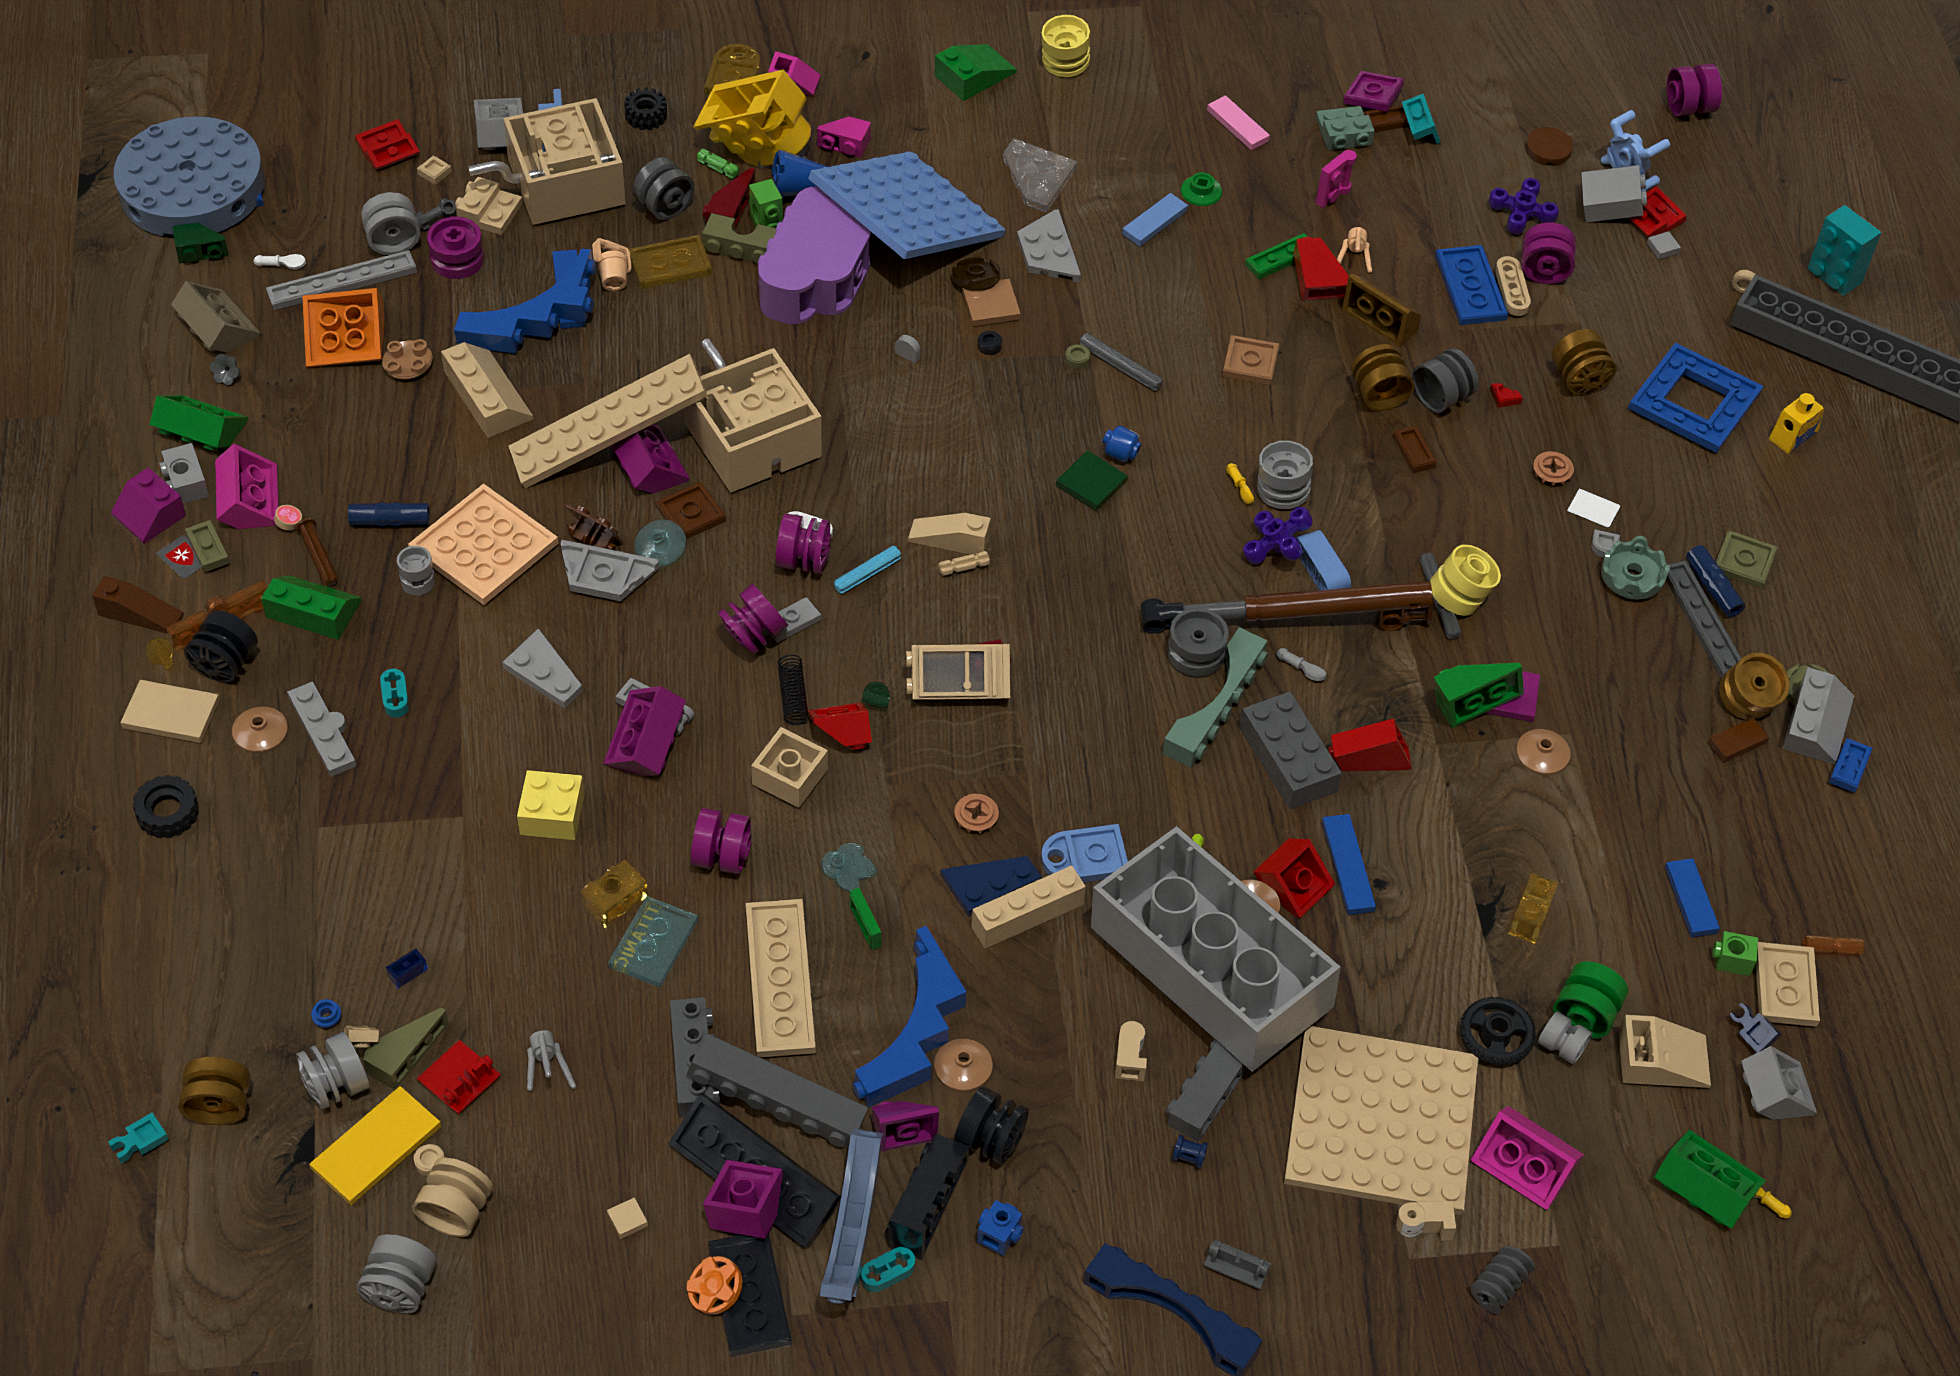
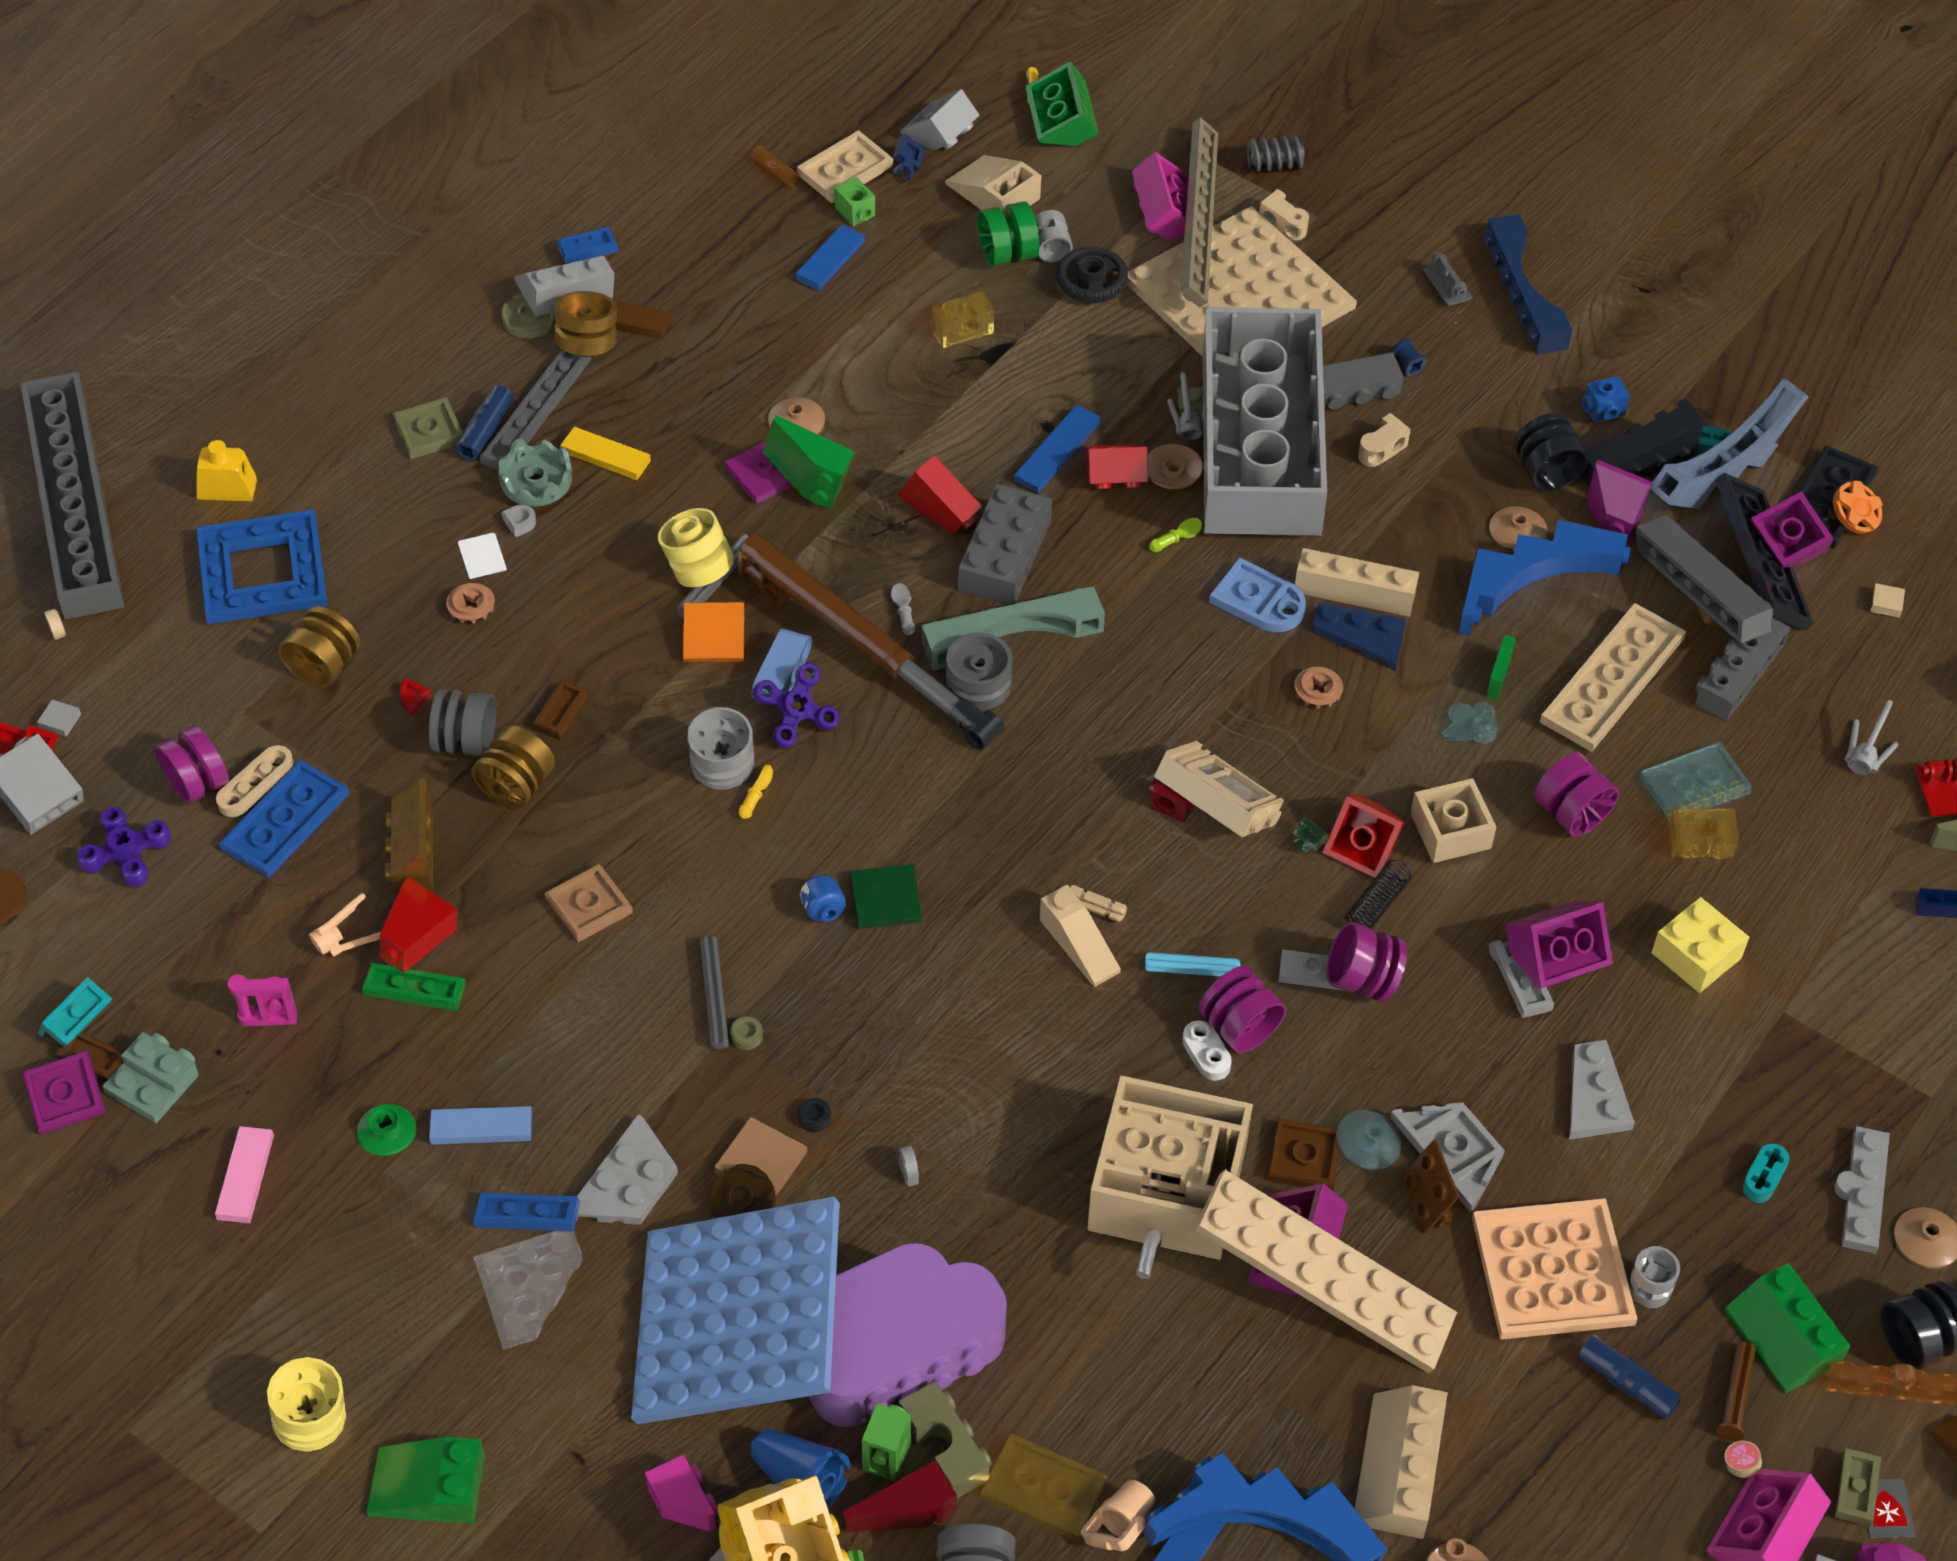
camera: 135 degrees left, 0 degrees up
(1077, 195) = (526, 1211): none -> blue tile
(1390, 553) = (713, 632): none -> orange tile
(1487, 1149) = (1199, 213): none -> dark tan plate
(1619, 625) = (606, 453): none -> yellow tile

